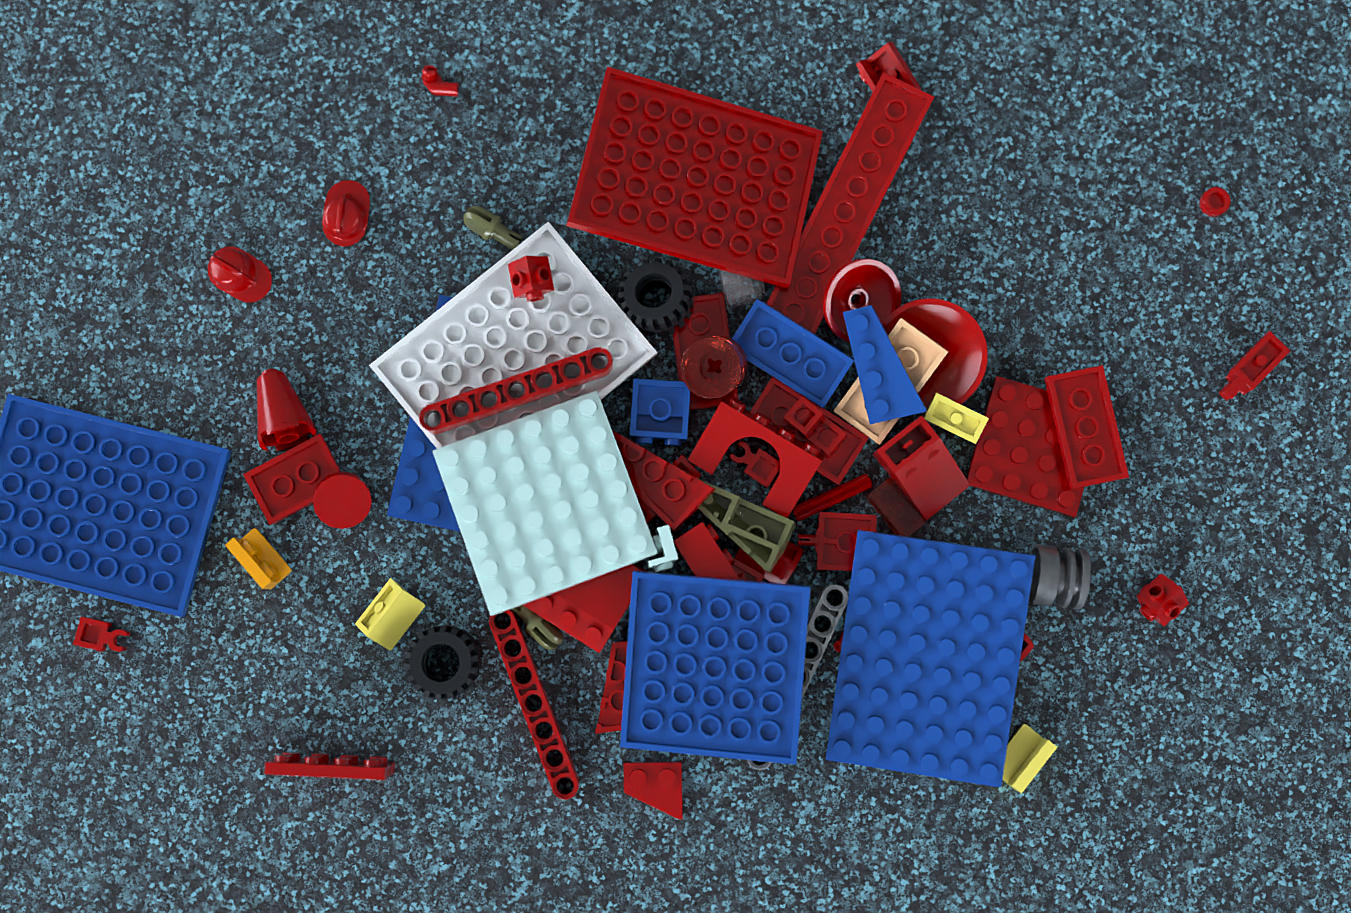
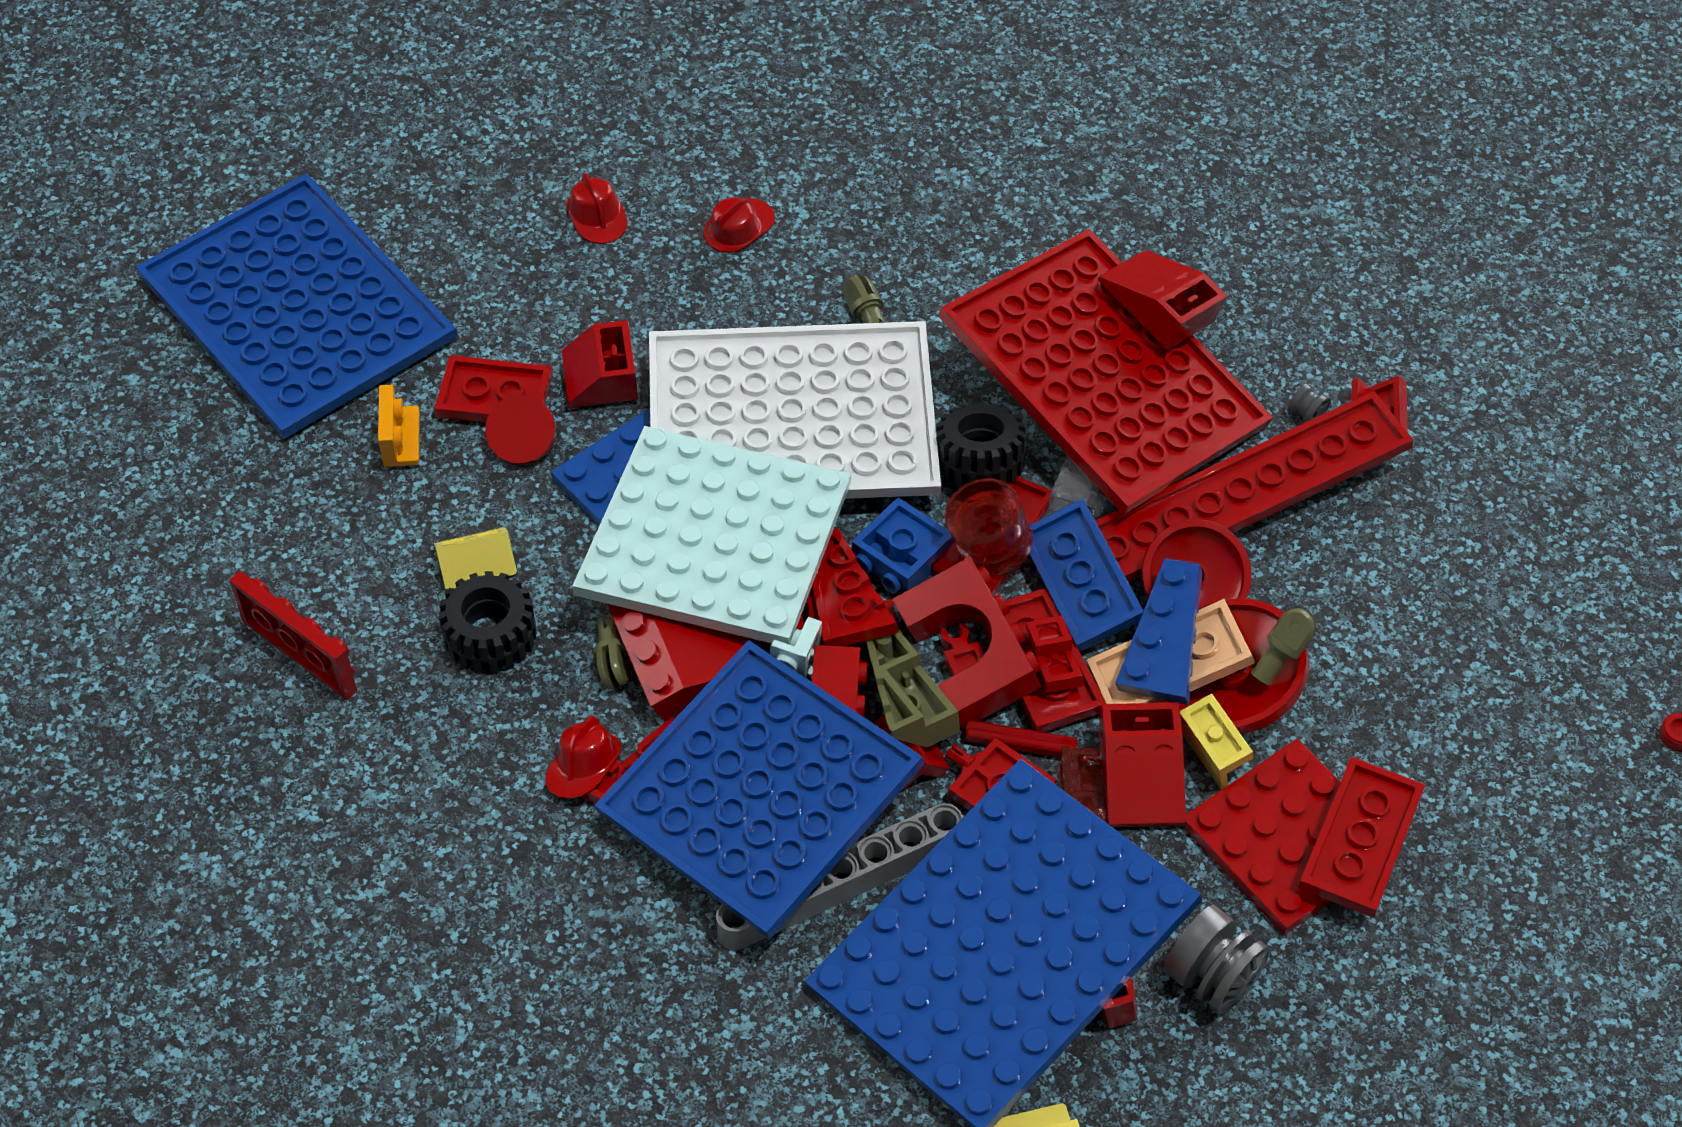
camera: 40 degrees right, 30 degrees down
(97, 634) = (194, 399): red plate -> none
(280, 413) = (528, 328): red cone -> none
(353, 411) = (600, 366): none -> red slope
(435, 83) = (914, 176): red arm -> none
(502, 390) = (772, 425): red beam -> none
(531, 277) = (867, 342): red brick -> none
(534, 717) = (543, 735): red beam -> none
(580, 712) = (582, 759): none -> red piece
(656, 784) = (600, 885): red wing -> none
(697, 92) = (1165, 296): none -> red slope
(839, 103) = (1308, 403): none -> dark grey wheel
(963, 329) = (1285, 642): none -> olive arm
(1161, 600) = (1327, 1071): red brick -> none
(1254, 366) = (1615, 912): red hinge -> none

